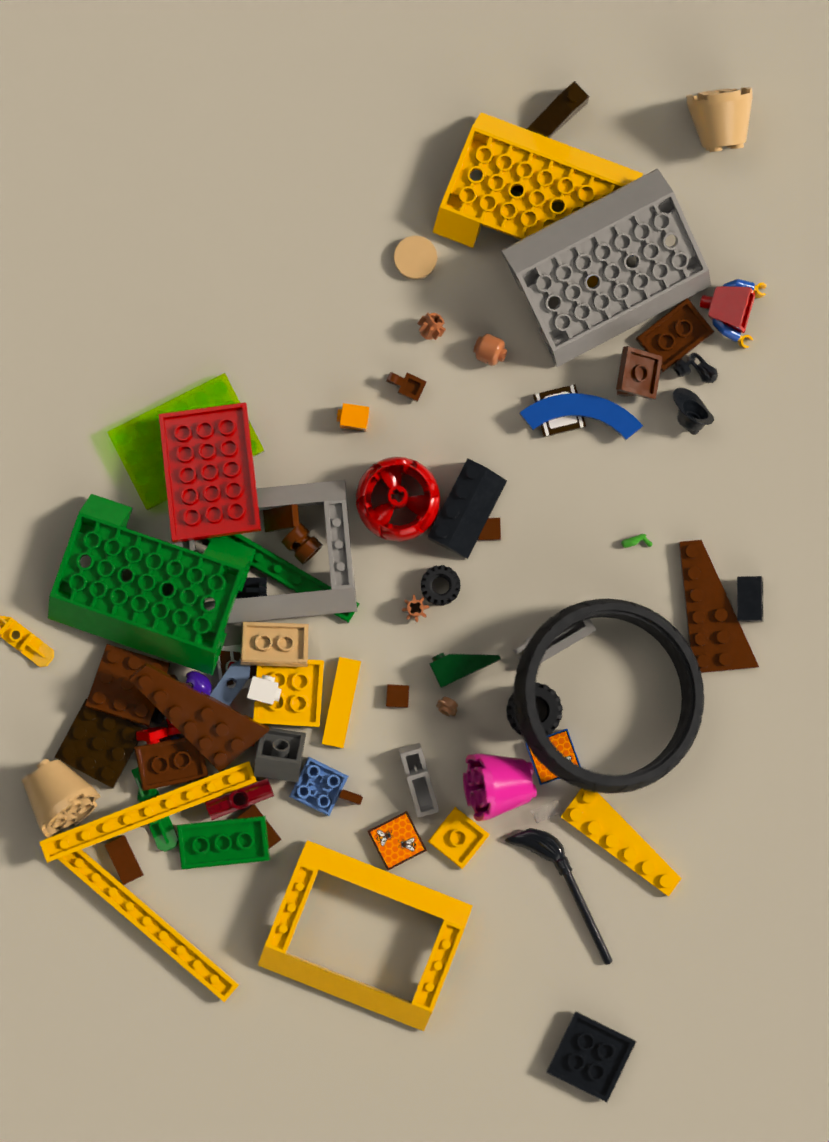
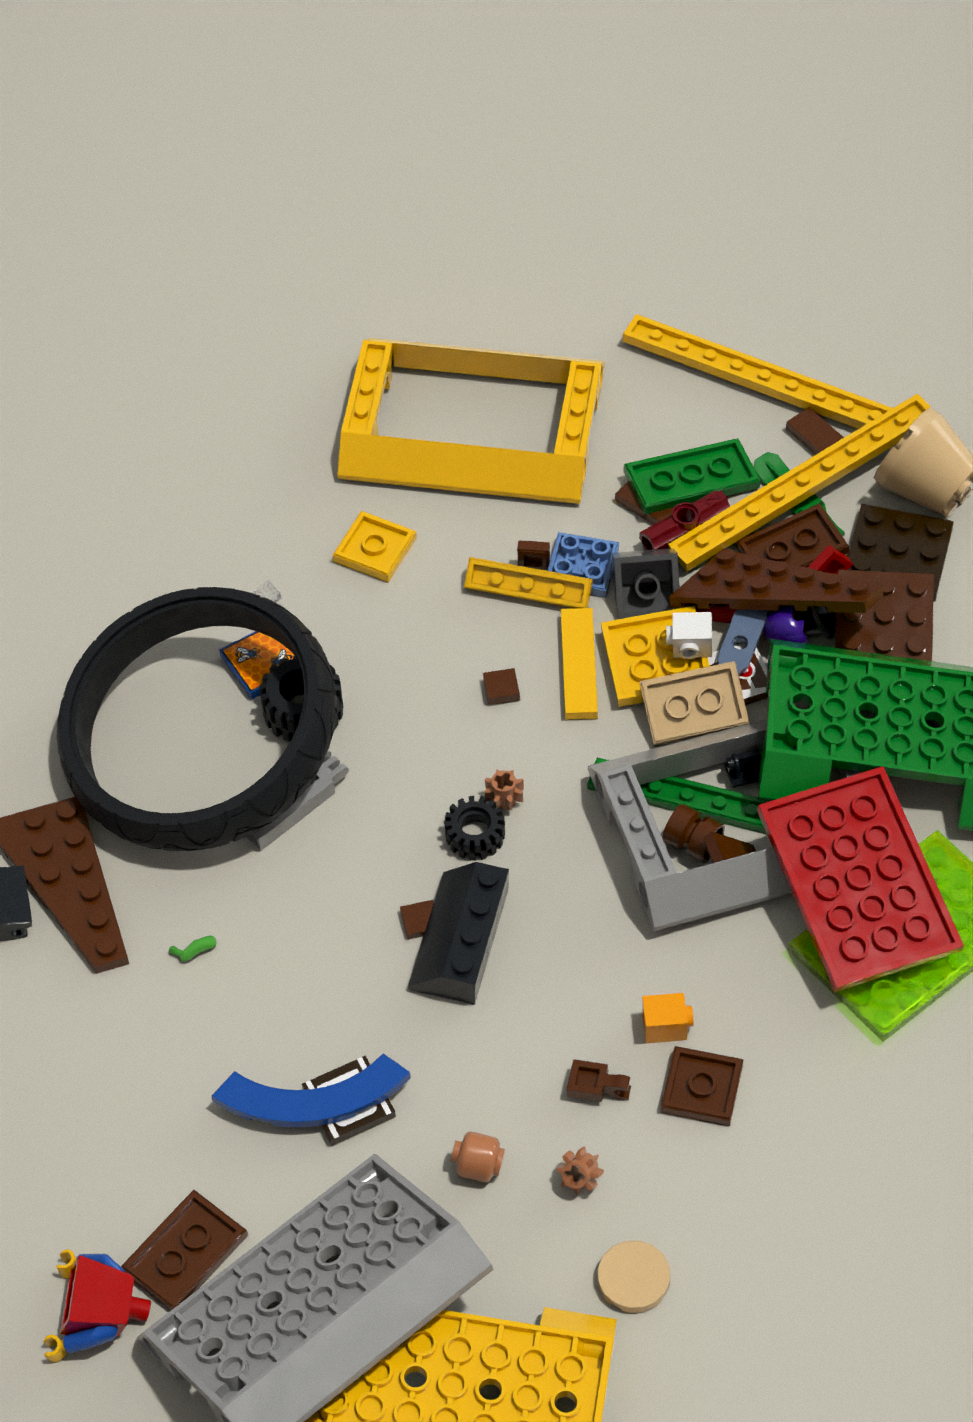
camera: 170 degrees right, 30 degrees down
(343, 370) = (702, 1086): none -> reddish brown tile
(360, 774) = (528, 583): none -> yellow tile
(397, 840) = (457, 526): tile -> none
(418, 780) = (446, 595): light grey slope -> none
(425, 505) = (572, 882): red wheel -> none
(447, 706) = (427, 683): medium nougat plate -> none
(457, 666) = (420, 734): dark green slope -> none
(497, 784) = (333, 594): dark pink cone -> none
(551, 849) = (241, 554): black piece -> none
(591, 1056) = (146, 354): black plate -> none
(605, 827) = (130, 577): yellow wing -> none
(638, 373) = (232, 1165): reddish brown bracket -> none
(692, 411) = (137, 1138): black piece -> none
(707, 372) = (124, 1203): black piece -> none

